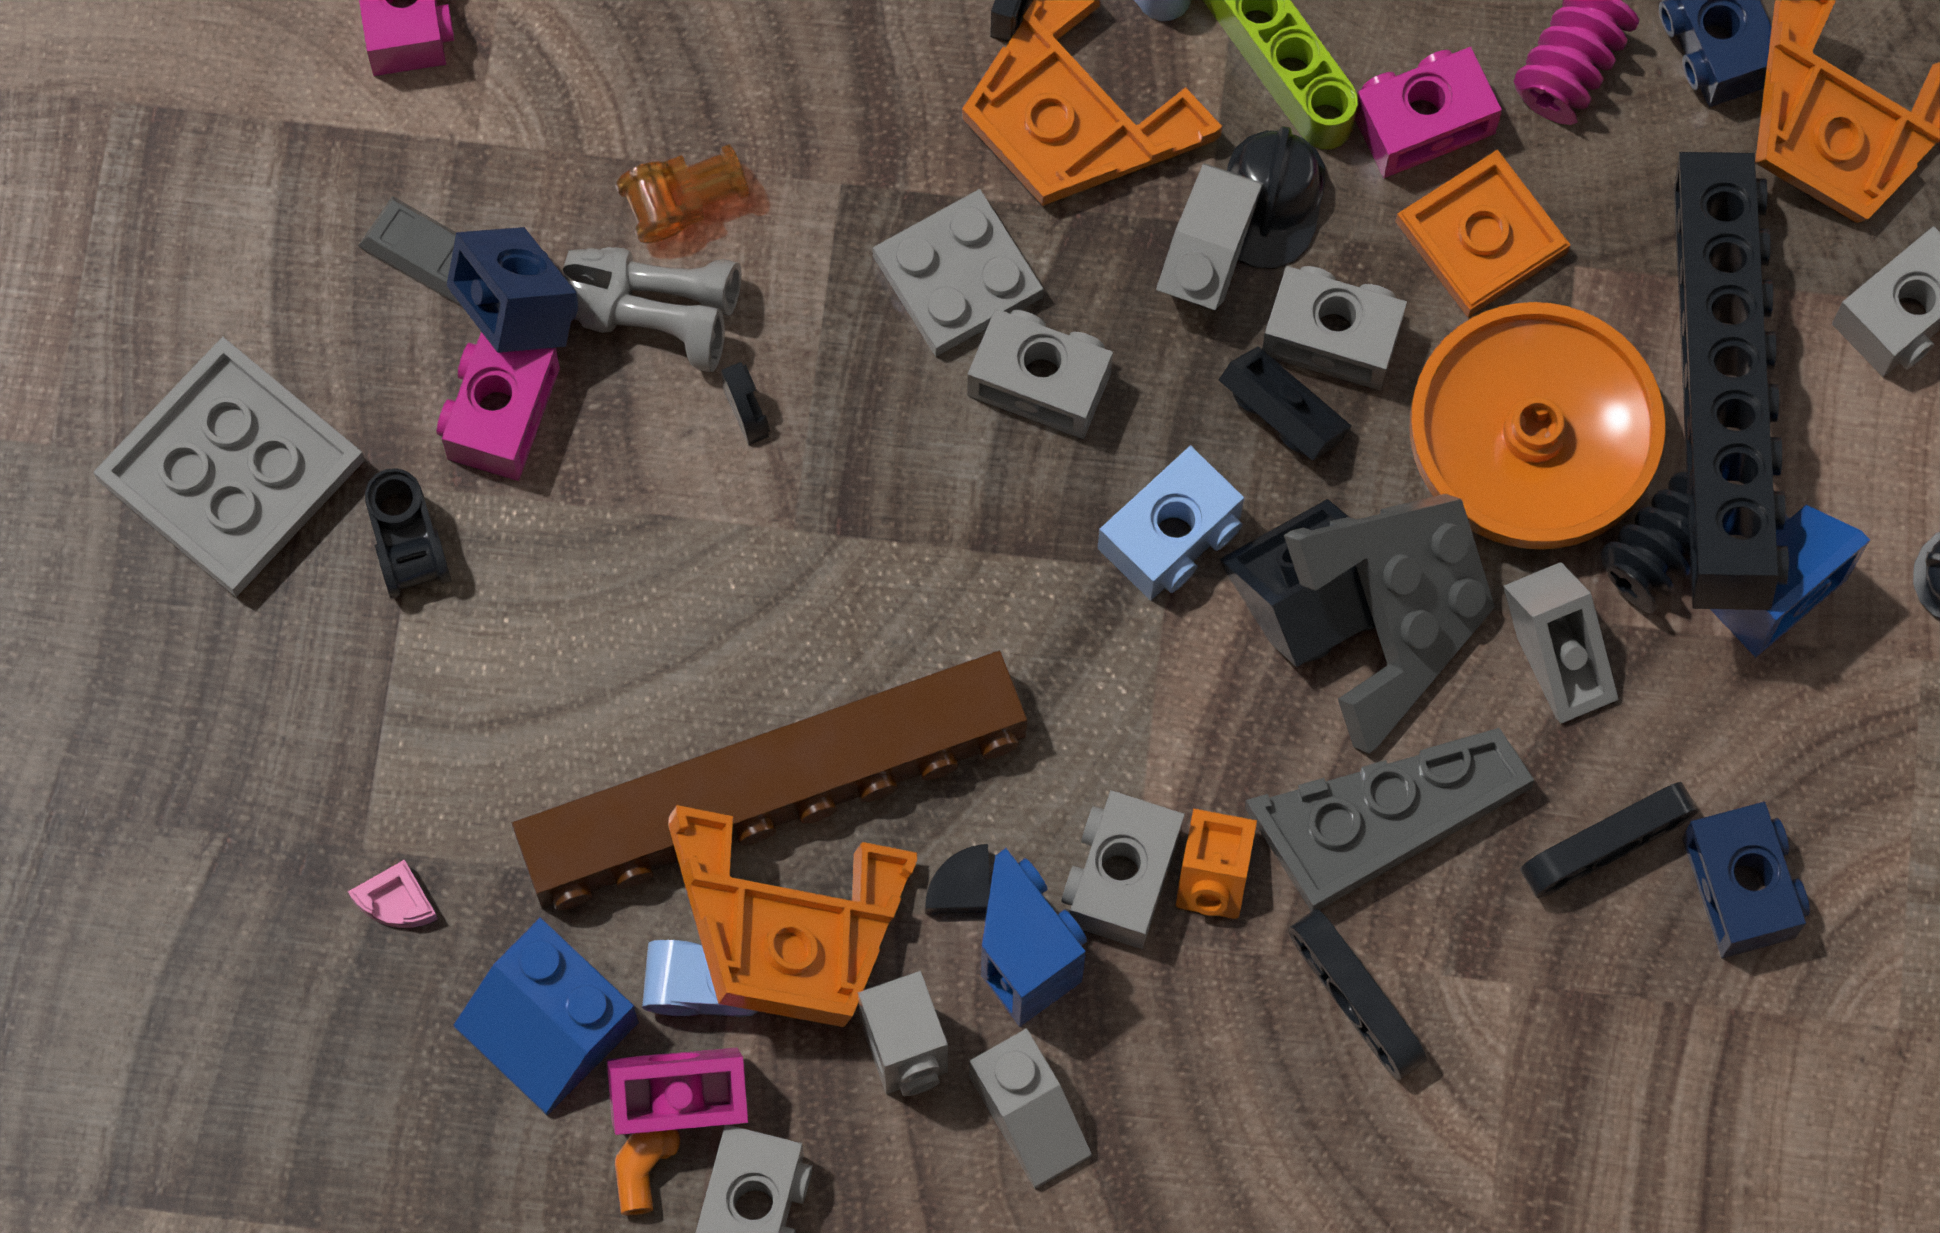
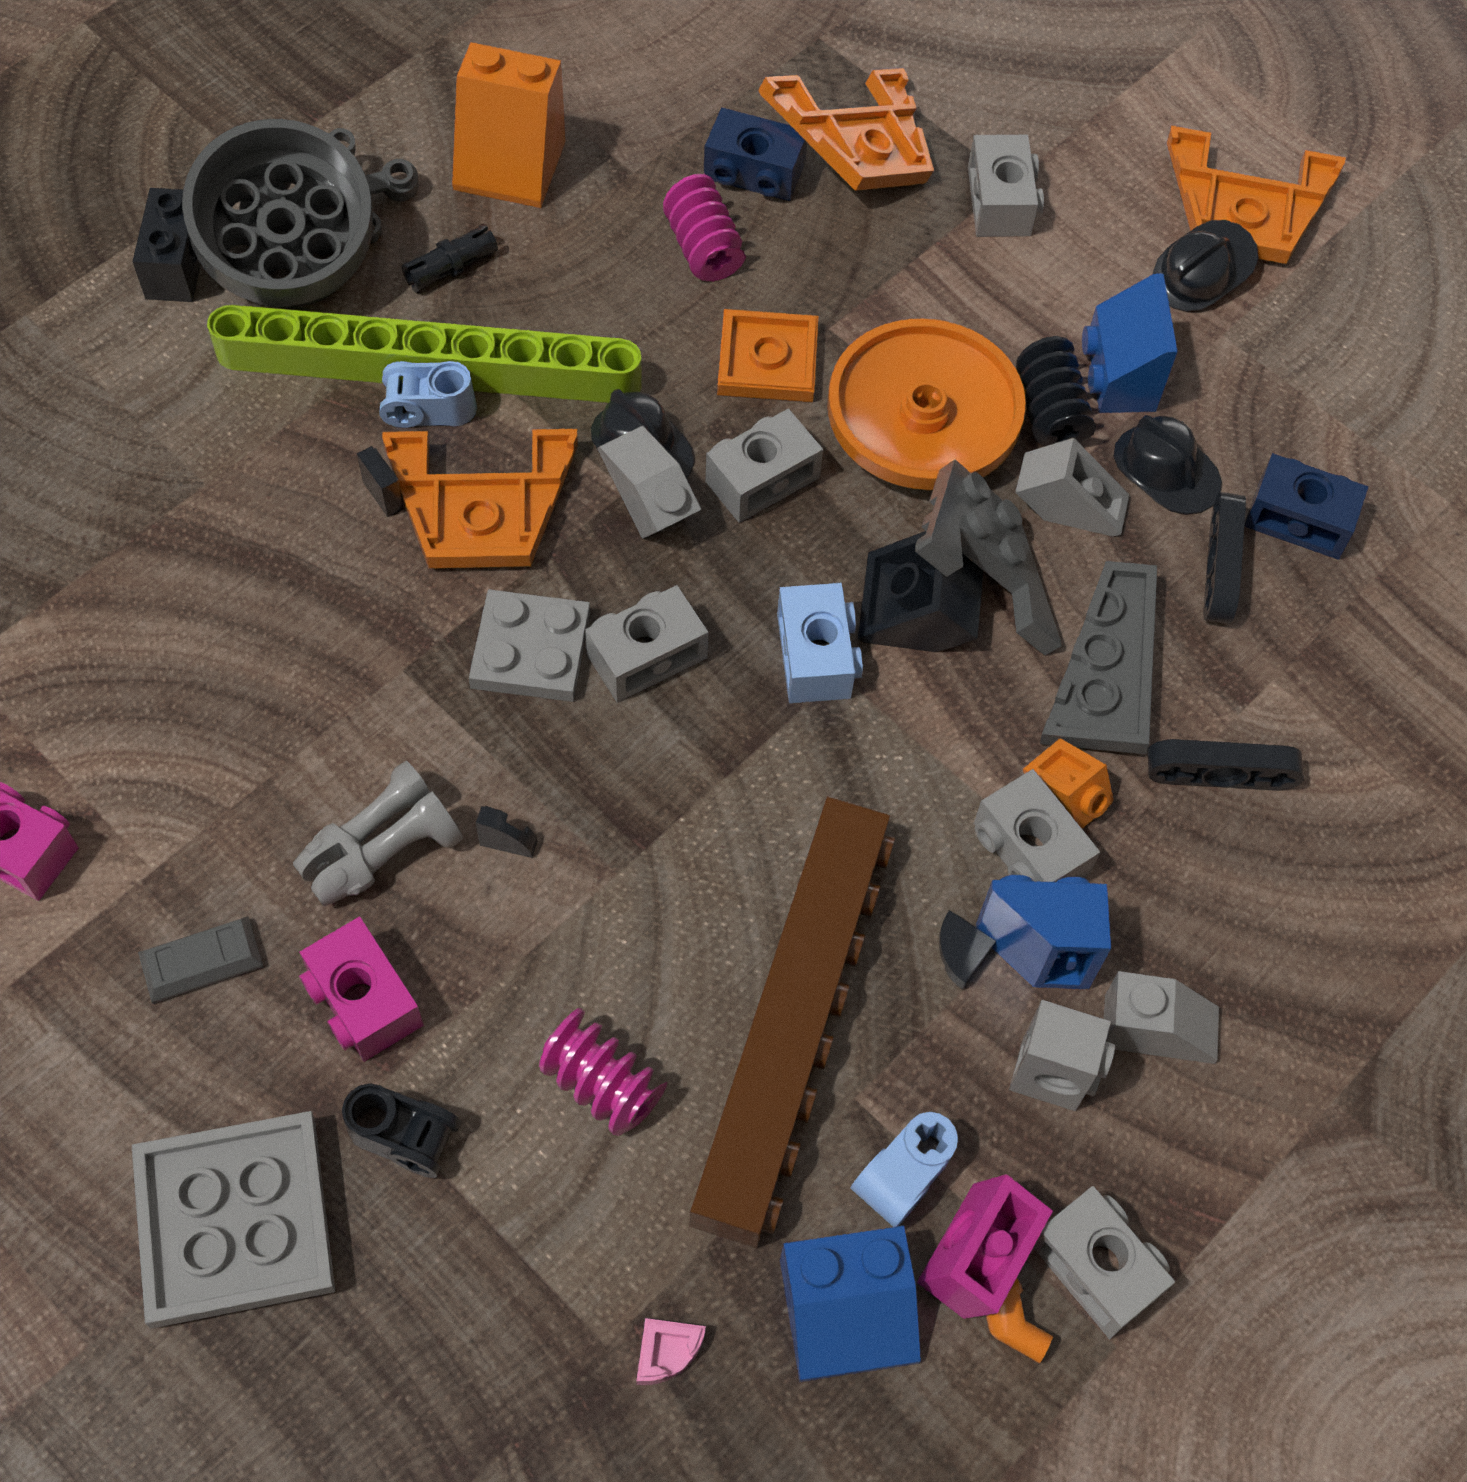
camera: 55 degrees left, 10 degrees down
(511, 289) = (292, 912): dark blue brick -> none
(577, 658) = (598, 1075): none -> dark pink piece
(679, 192) = (319, 766): clear orange connector -> none
(783, 945) = (934, 1090): orange wing -> none
(1285, 403) = (808, 524): black plate -> none
(1406, 138) = (668, 321): dark pink brick -> none
(1688, 716) = (1168, 465): none -> black piece
(1716, 234) = (997, 283): black brick -> none

